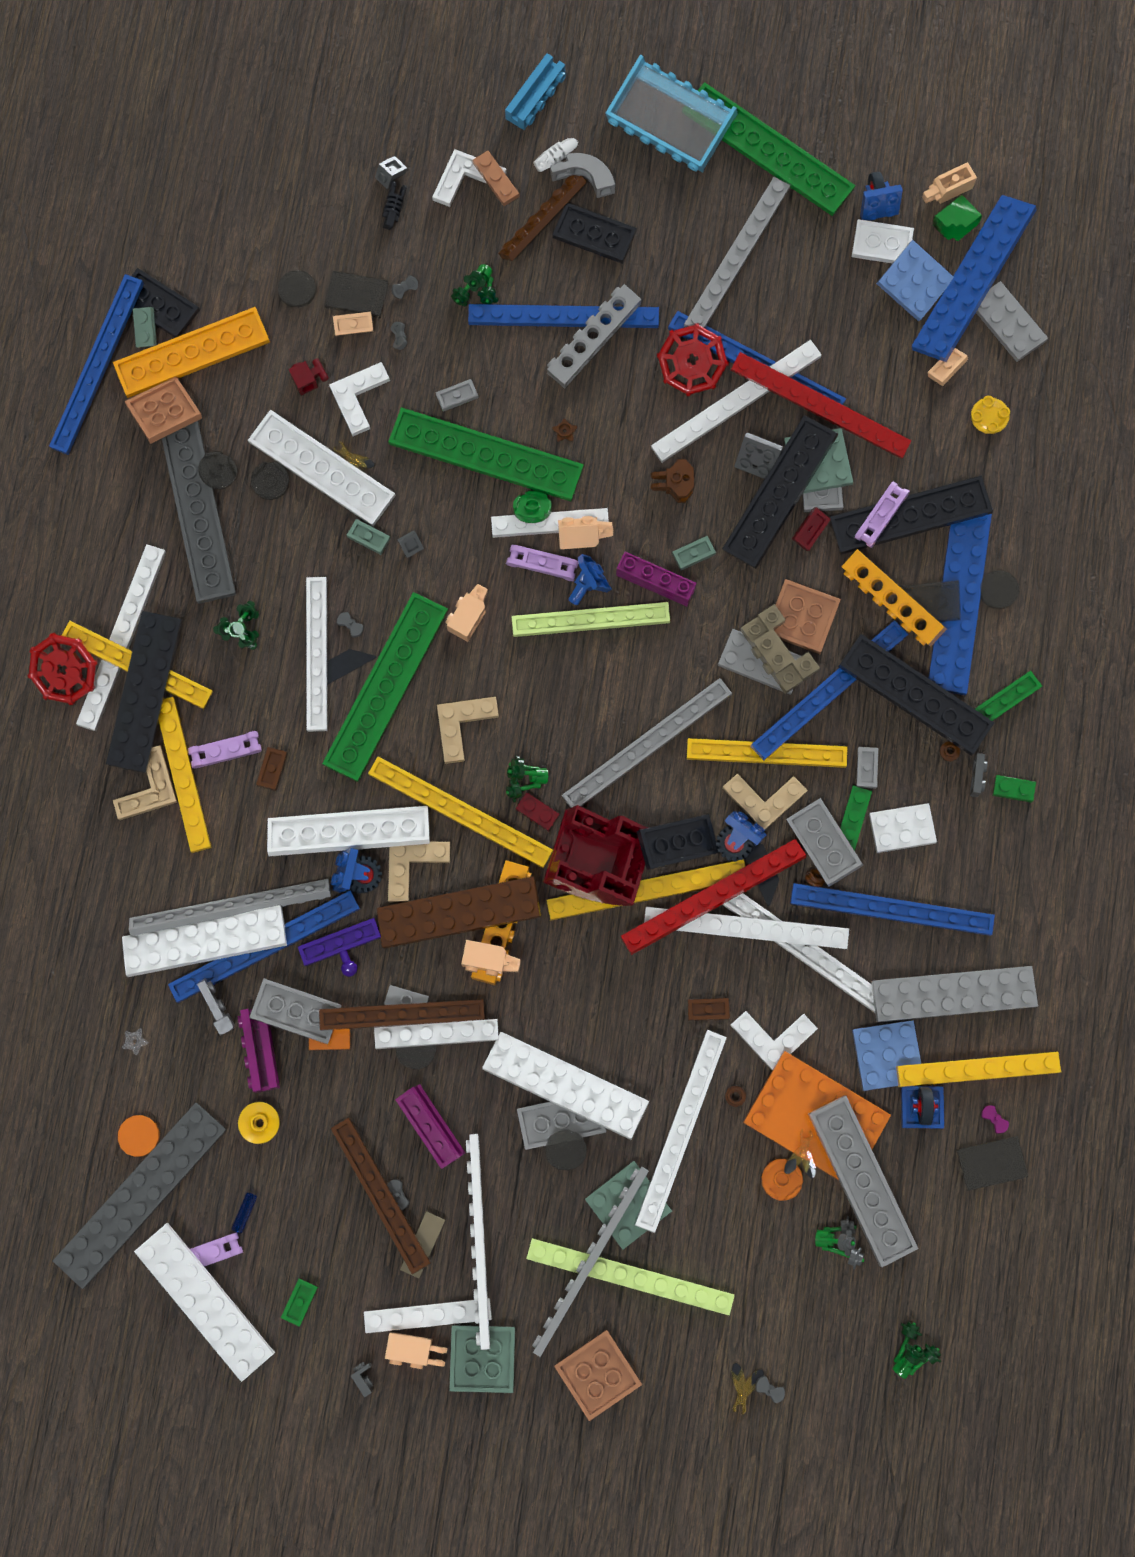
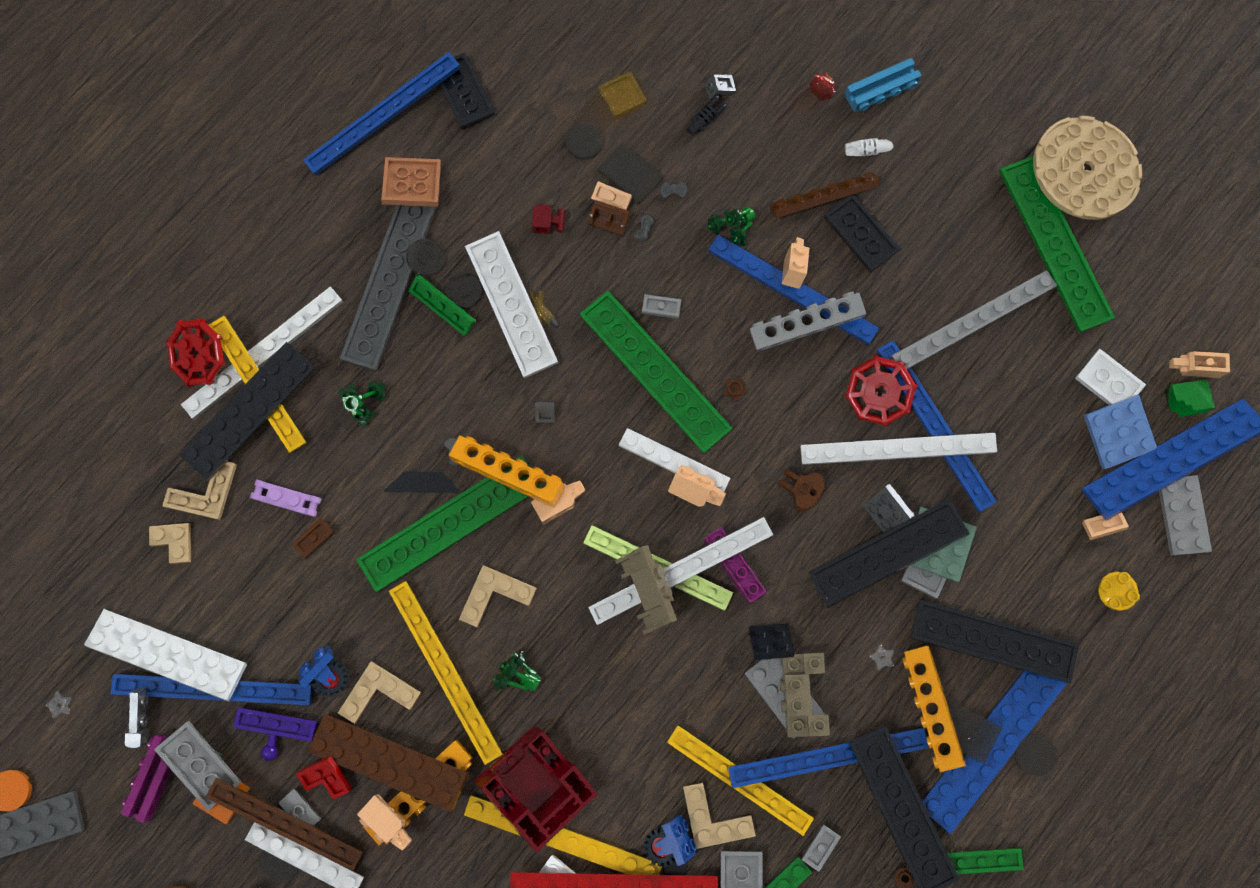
camera: 30 degrees right, 0 degrees up
(144, 327) = (439, 104): sand green plate -> none
(146, 839) = (177, 537): none -> tan plate
(183, 777) = (238, 501): yellow plate -> none
(191, 352) = (465, 146): light orange plate -> none
(229, 907) = (205, 638): light grey plate -> none
(249, 1118) = (102, 847): yellow dish -> none
(259, 503) = (442, 305): none -> green plate
(306, 227) = (622, 94): none -> clear yellow plate
(316, 653) = (410, 461): white plate -> none
(348, 830) = (341, 632): white plate -> none
(353, 385) = (574, 249): white plate -> none
(362, 343) = (609, 218): none -> reddish brown hinge
(368, 536) = (514, 385): sand green plate -> none
(410, 953) = (325, 772): none -> red plate
(419, 615) = (548, 495): none -> light orange brick
(457, 167) = (784, 114): white plate -> none
(482, 121) = (822, 86): none -> clear red head
(496, 178) = (804, 140): nougat plate -> none
(532, 507) = (666, 440): green tile -> none
(537, 811) = (510, 710): dark red plate -> none
(542, 562) = (646, 493): lavender plate -> none
(553, 291) = (795, 264): none -> light nougat hinge
(589, 579) = (678, 532): blue piece -> none
(590, 168) = (888, 173): light grey arch -> none
(597, 633) = (651, 588): none -> dark tan bracket
(612, 607) = (686, 568): none -> white plate
(647, 744) = (639, 708): light grey plate -> none
(670, 115) = (987, 167): clear window -> none
(677, 842) = (611, 816): black plate -> none
(693, 553) = (781, 561): sand green plate -> none
(725, 623) = (771, 641): none -> black plate
(761, 42) = (1081, 192): none -> tan plate
(806, 615) = (847, 676): nougat plate -> none
(811, 529) = (897, 600): dark red plate -> none
(820, 405) = (970, 496): red plate -> none
(832, 584) = (880, 663): none -> clear plate
(880, 198) = (1130, 341): blue plate -> none
(882, 514) = (968, 626): lavender plate -> none

